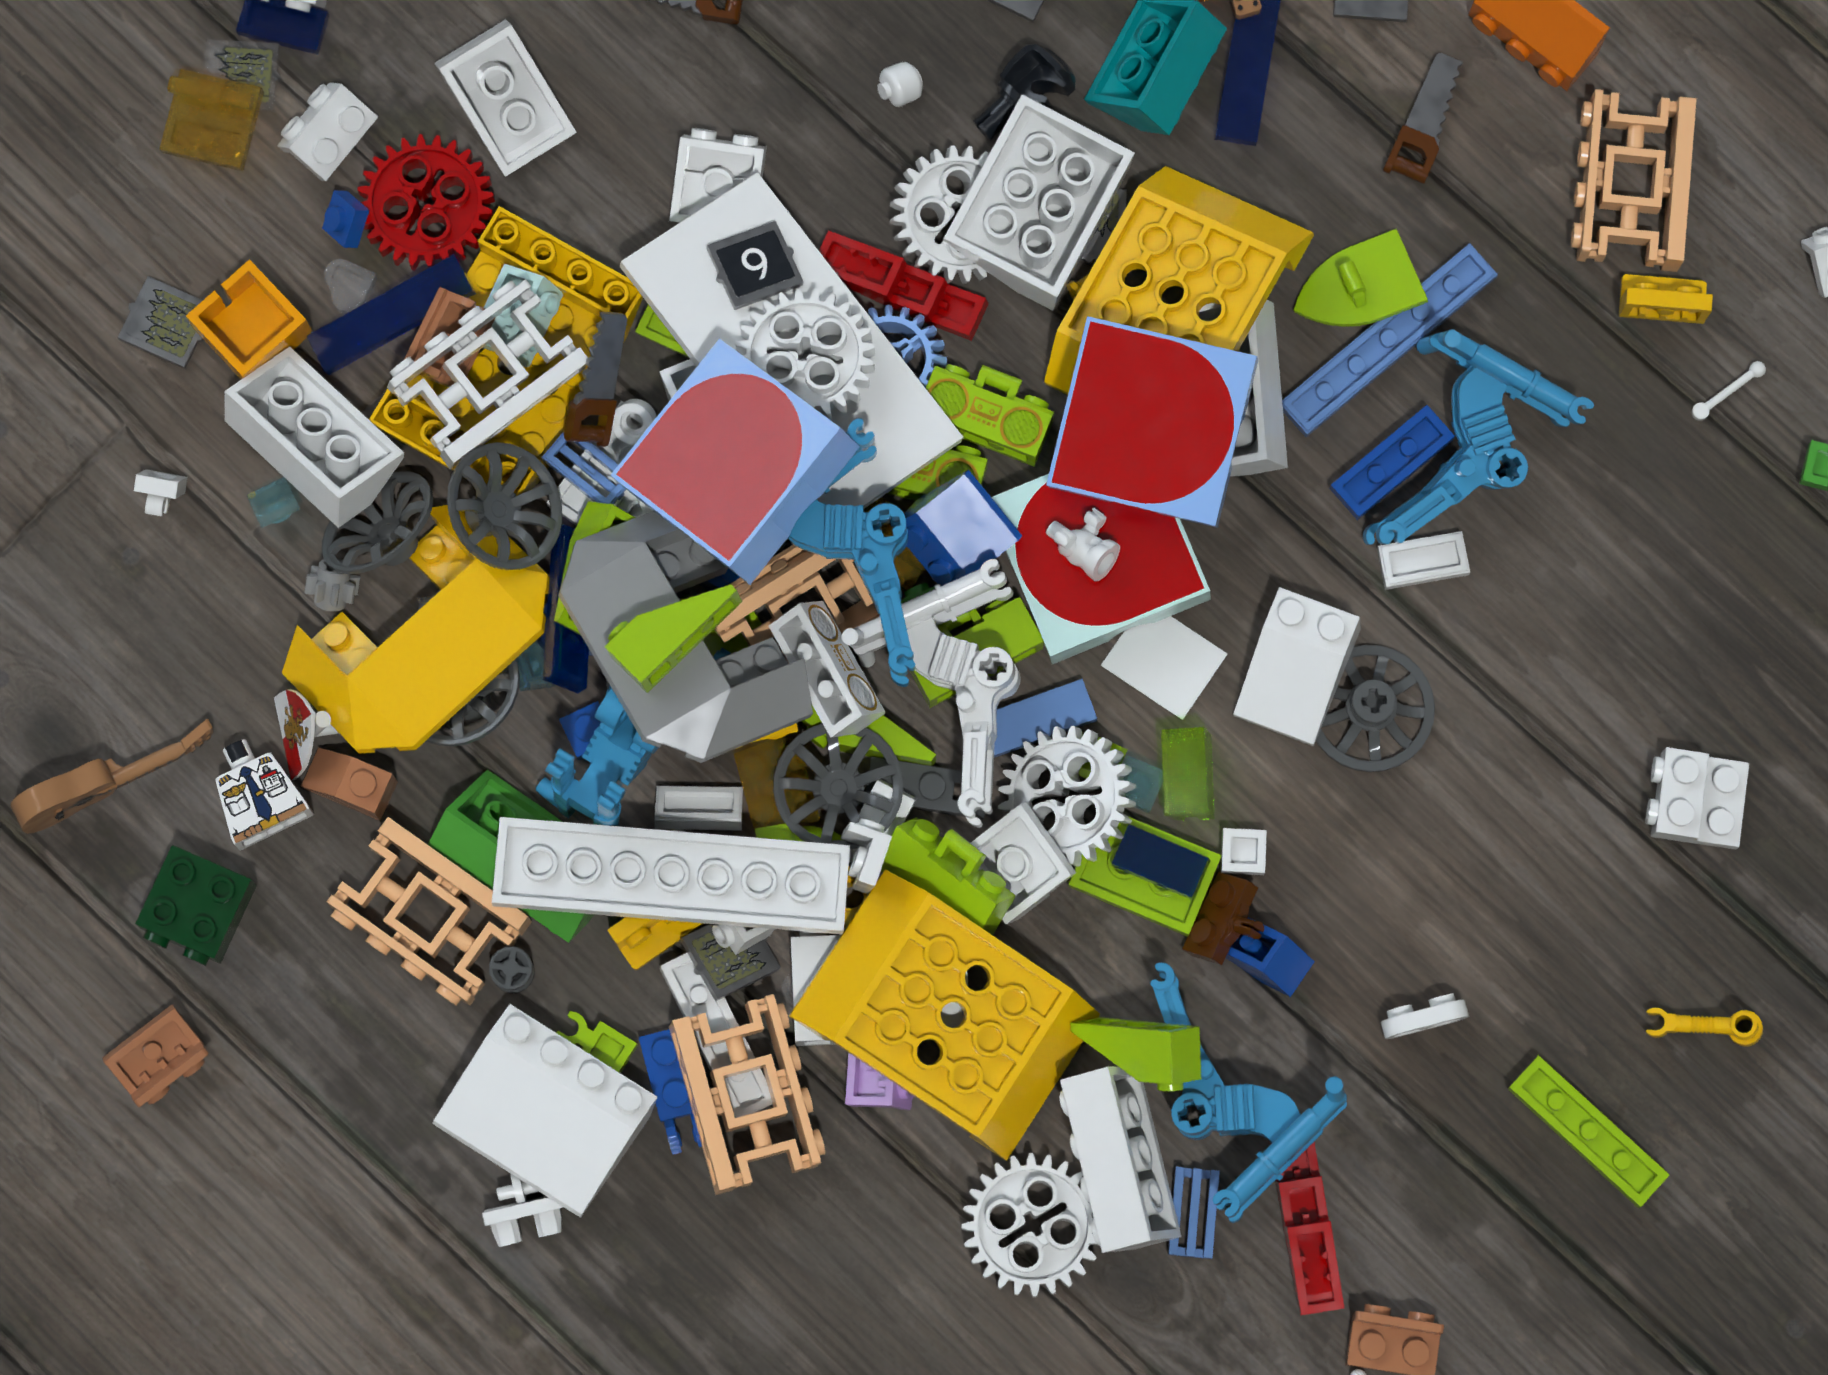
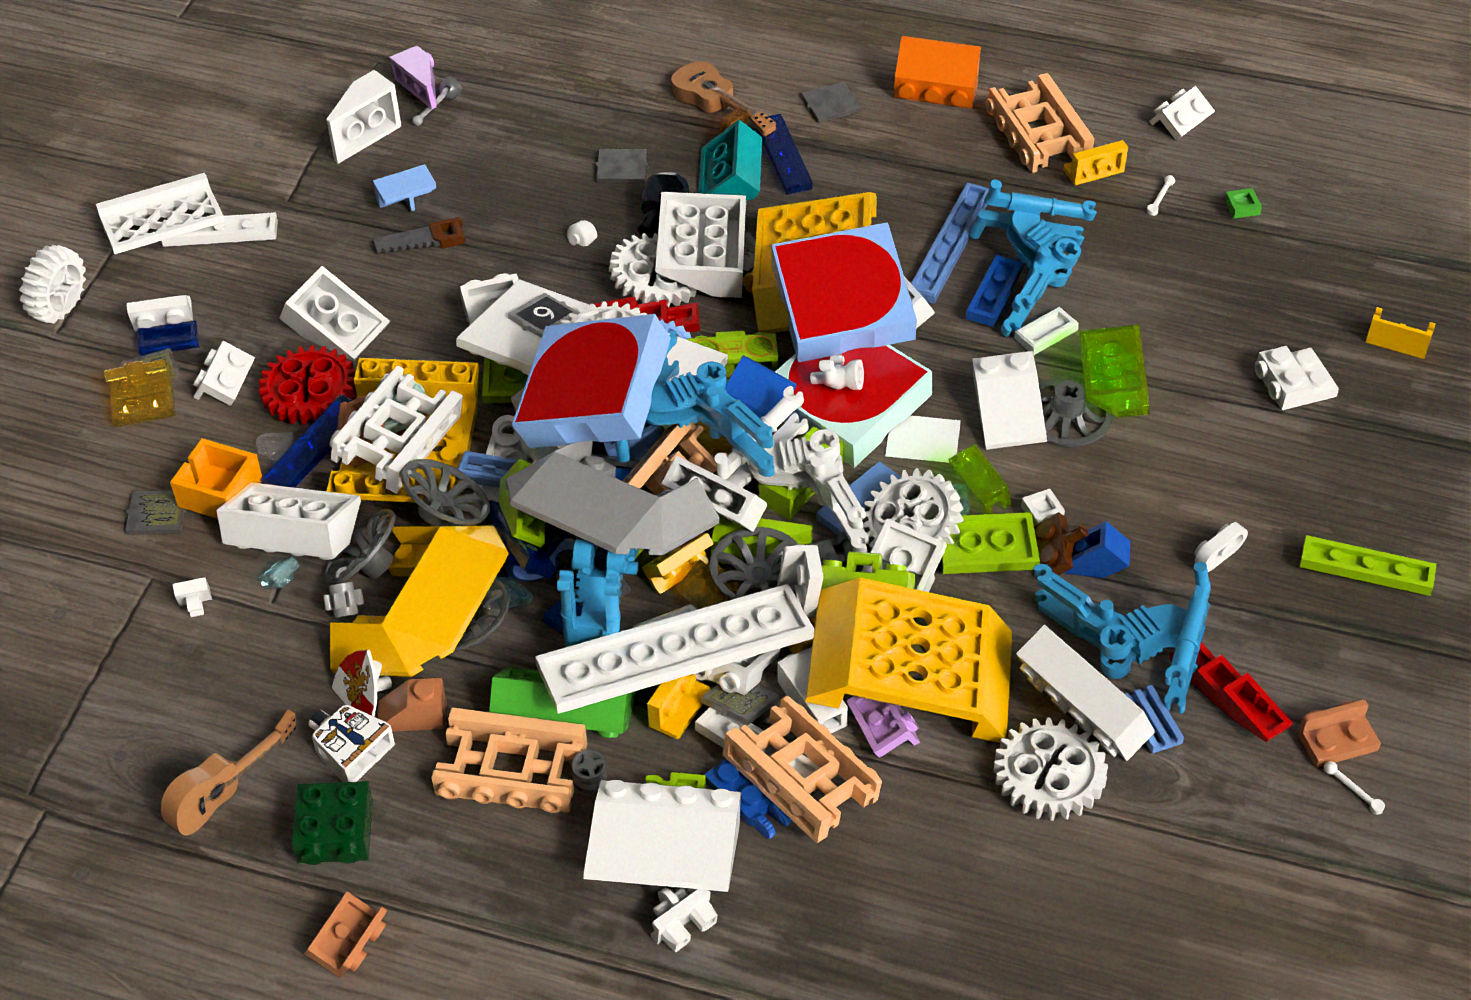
camera: 25 degrees left, 30 degrees down
(345, 219) = (258, 408): blue plate -> none
(598, 384) = (474, 411): piece -> none
(663, 637) = (599, 480): lime slope -> none
(1145, 1049) = (1068, 608): lime slope -> none
(1159, 861) = (995, 527): clear blue tile -> none
(1362, 284) = (921, 220): lime shield -> none
(1425, 120) = (904, 154): piece -> none
(1458, 686) = (1115, 370): none -> clear neon green slope
(1717, 1025) = (1414, 475): yellow brick -> none

